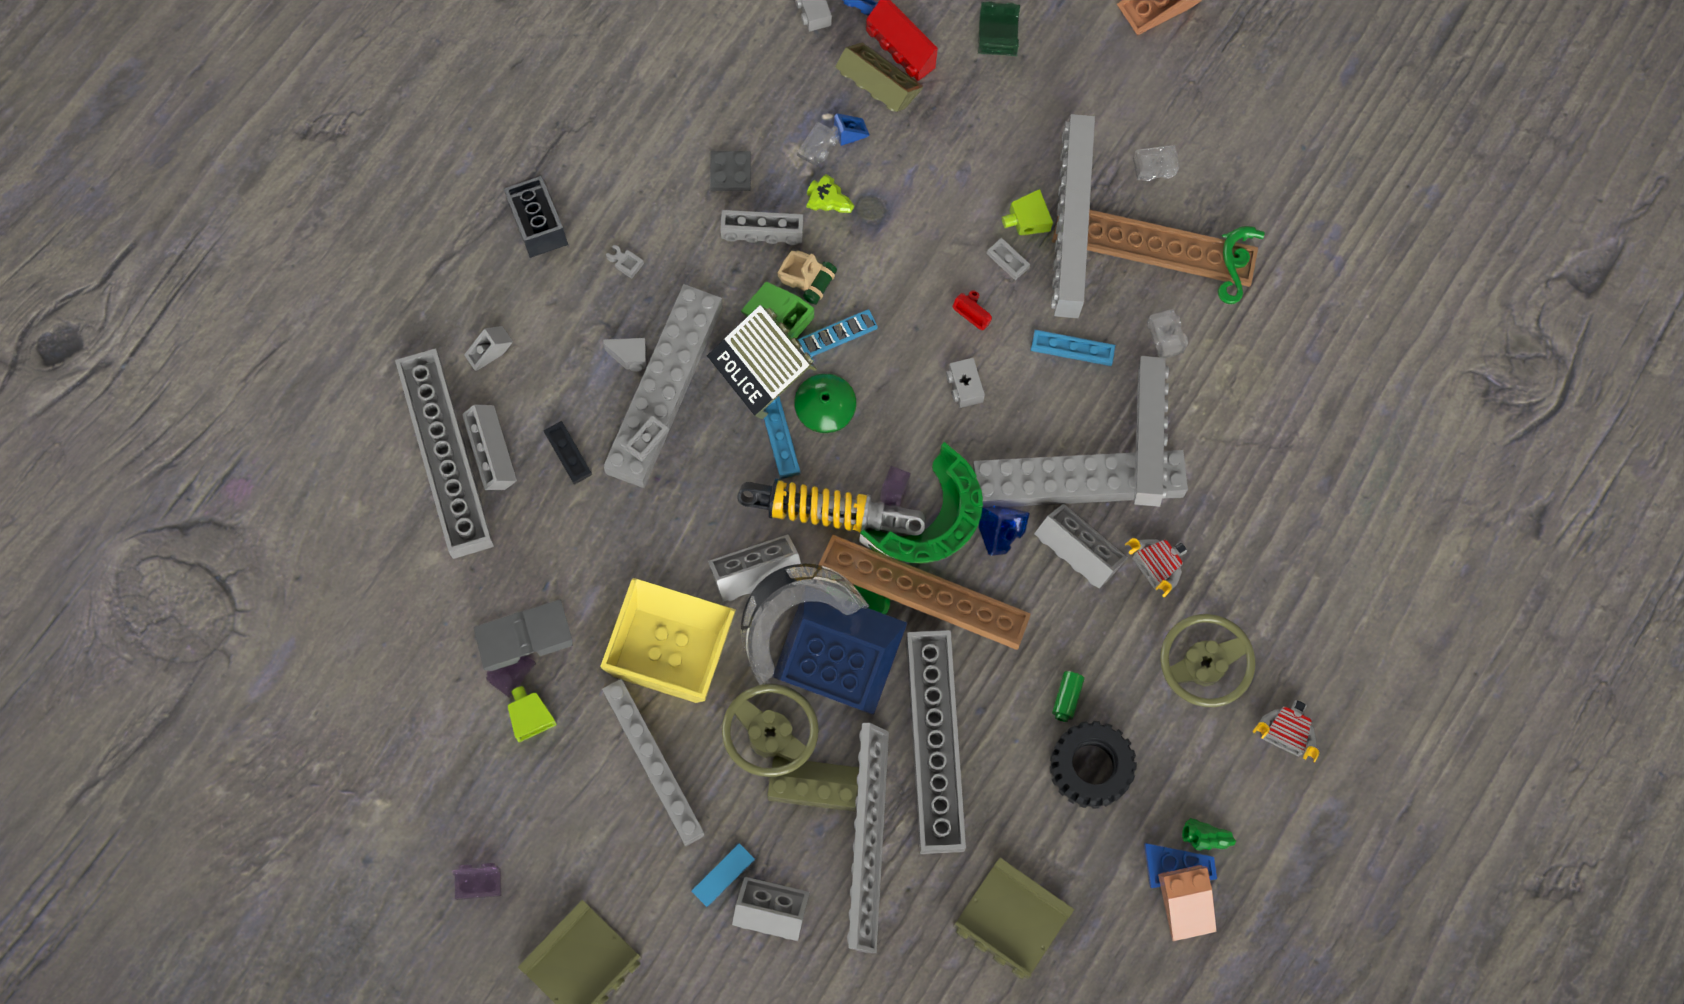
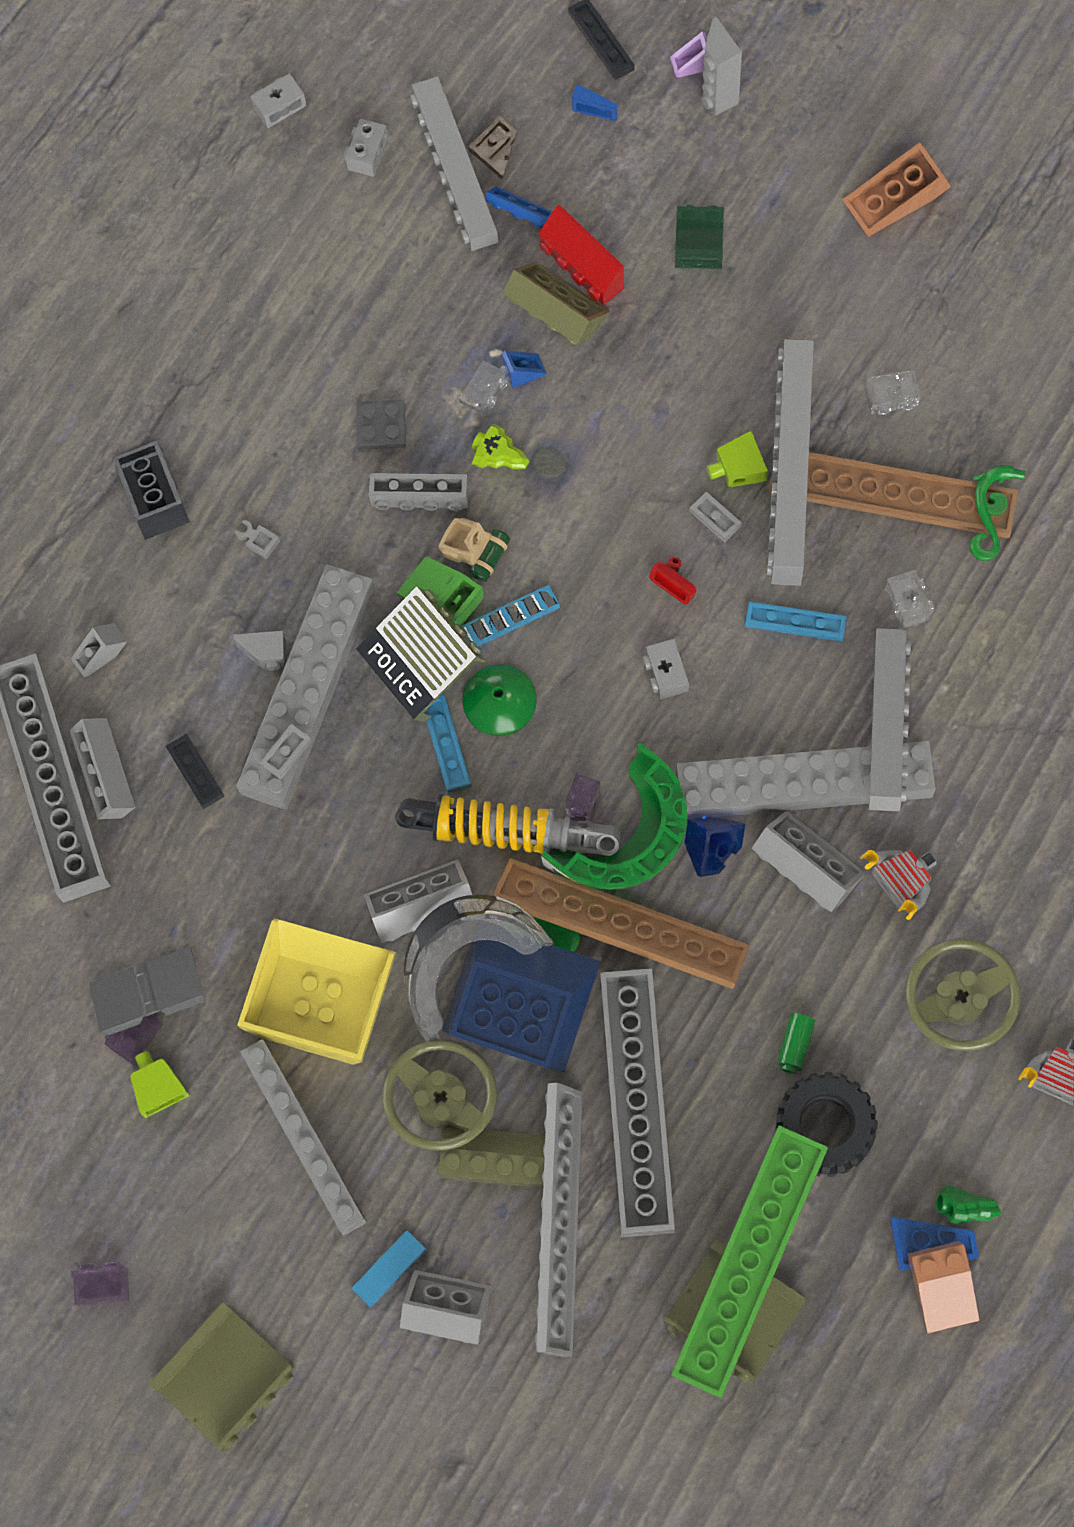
camera: 10 degrees right, 0 degrees up
(1028, 877) = (749, 1262): none -> bright green plate

